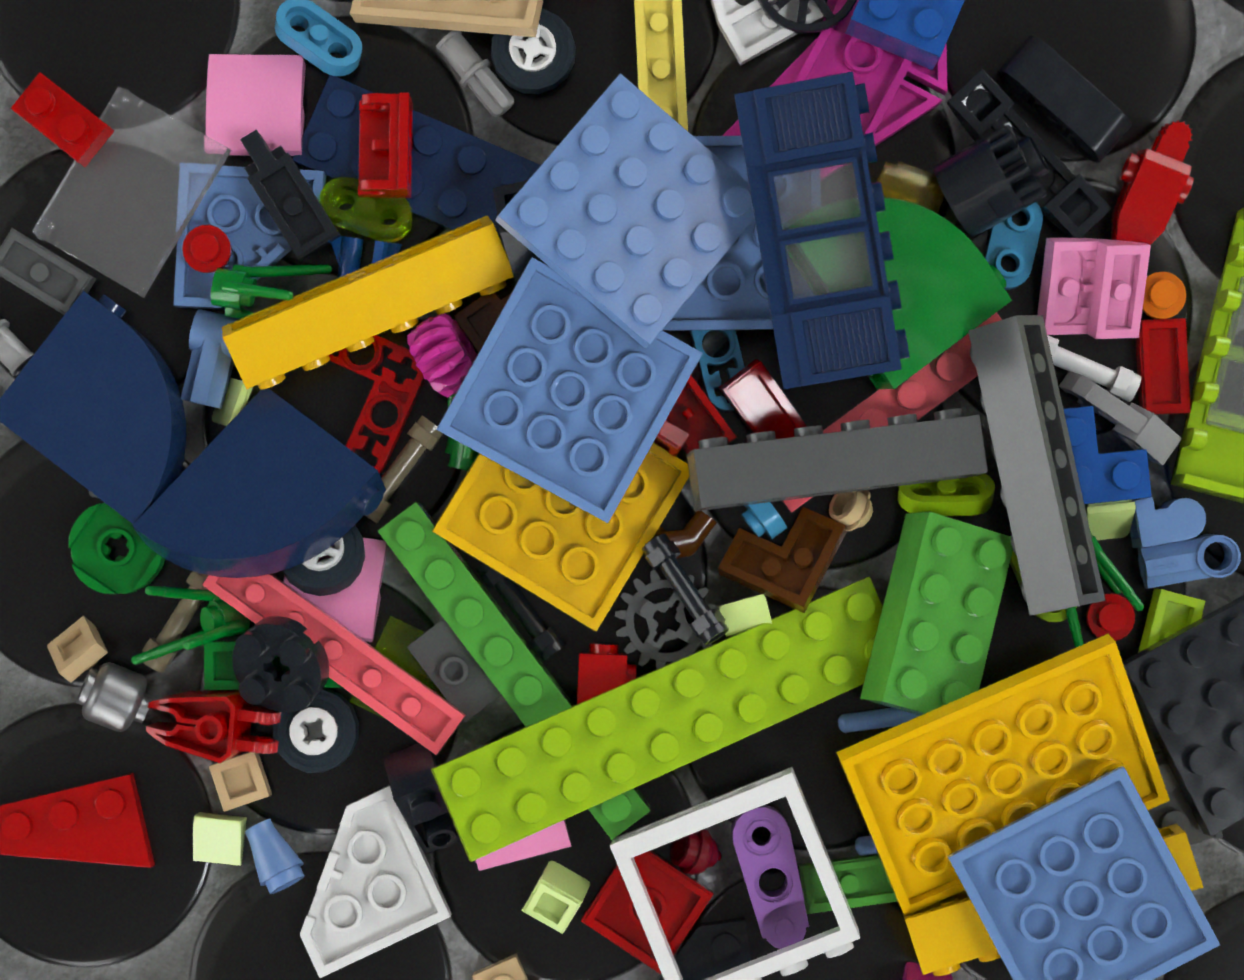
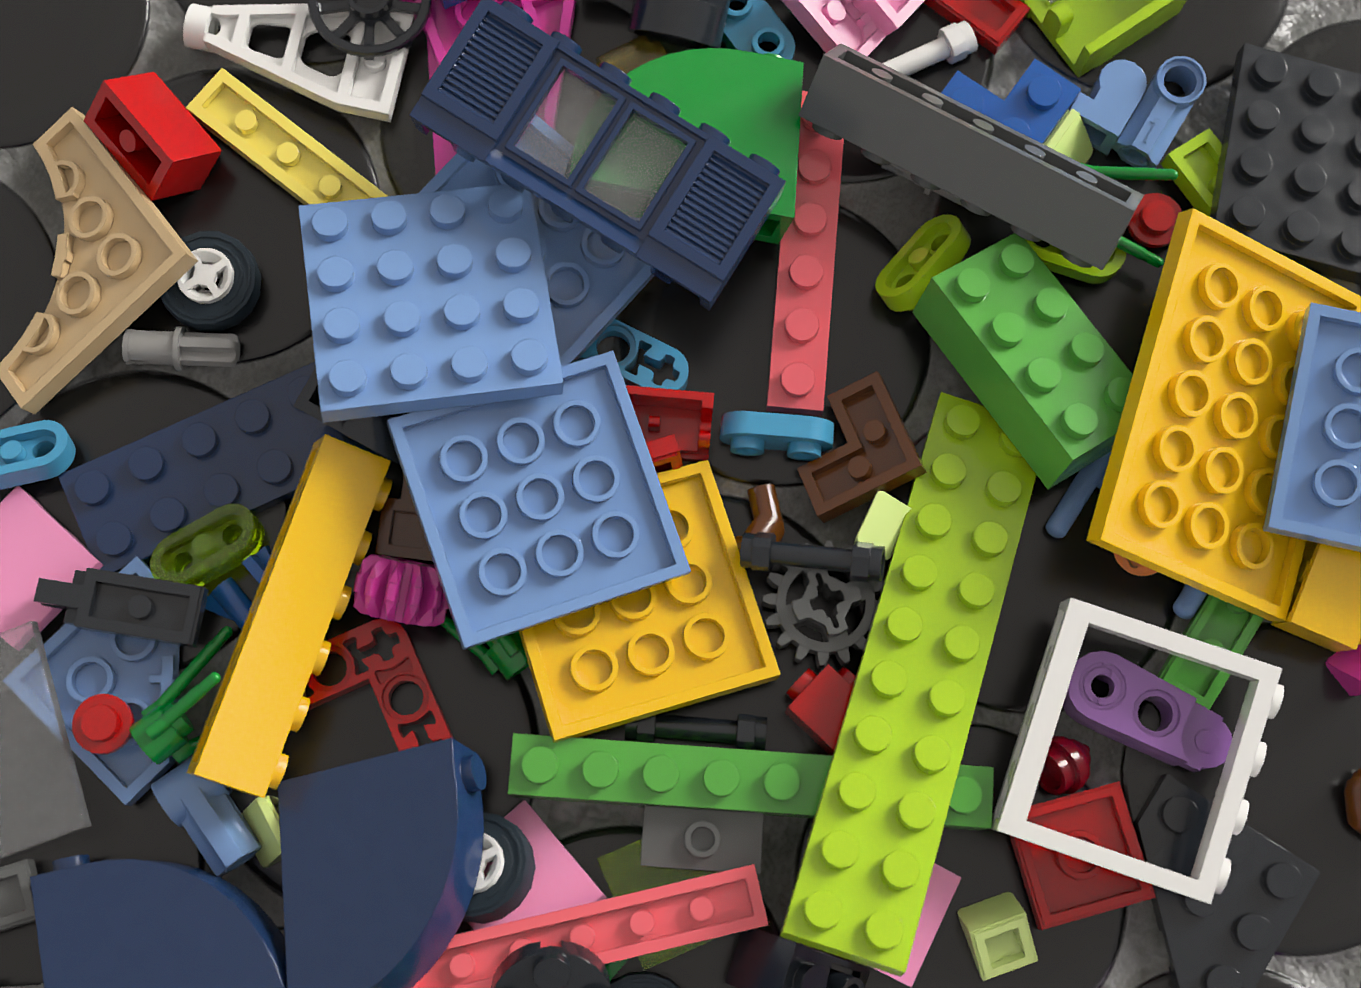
camera: 55 degrees left, 10 degrees down
(385, 145) = (165, 476): red hinge -> none
(423, 436) = (459, 679): dark tan bar -> none
(761, 402) = (712, 354): tile -> none
(836, 461) = (812, 327): dark grey brick -> none
(851, 509) = (864, 354): tan plate -> none
(1132, 423) = (1001, 56): light grey piece -> none

